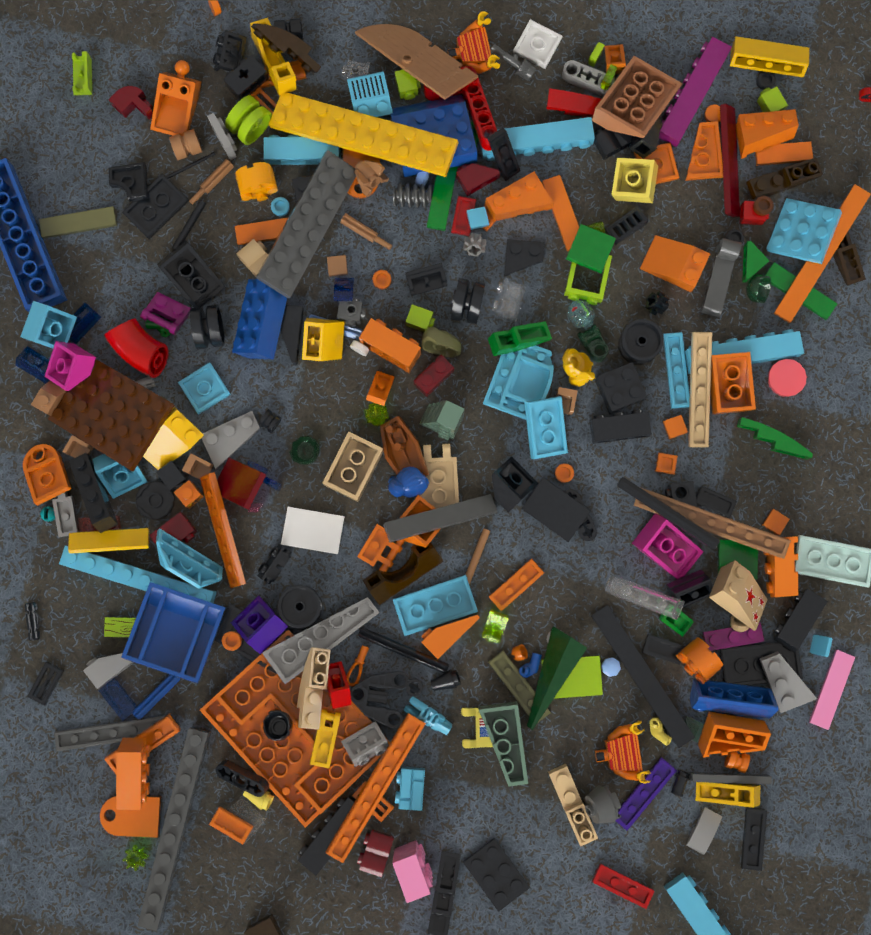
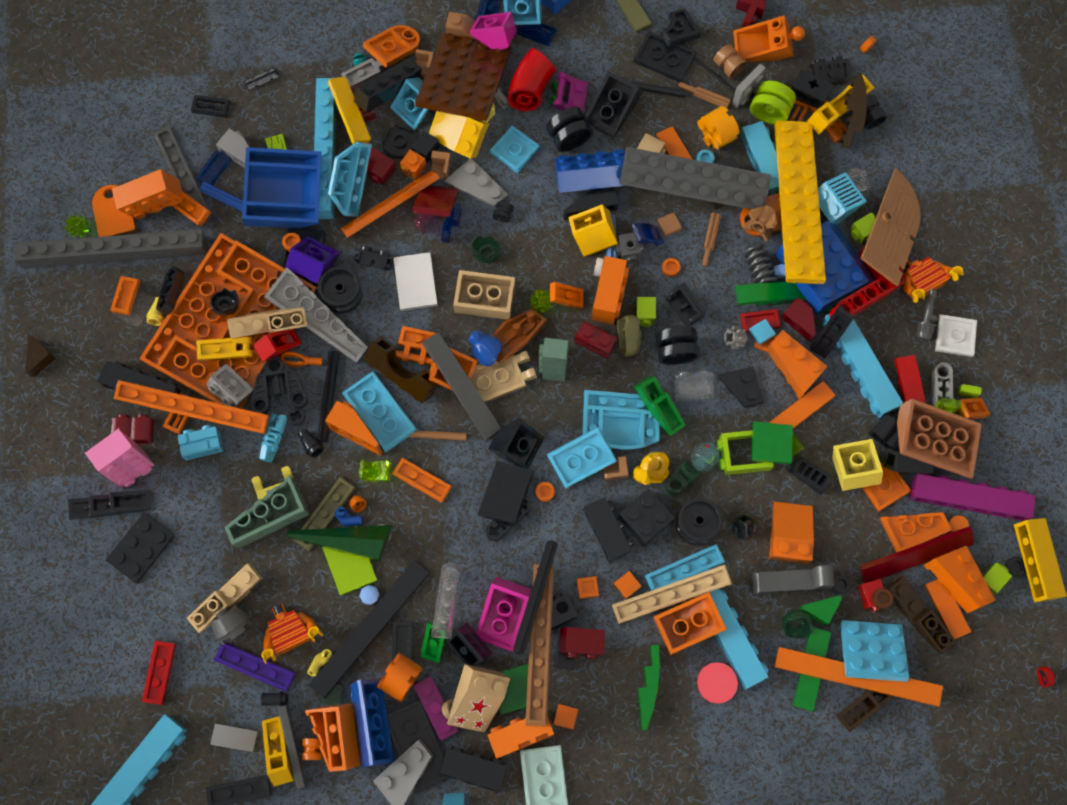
camera: 75 degrees right, 10 degrees down
(717, 485) = (582, 642): none -> dark red brick

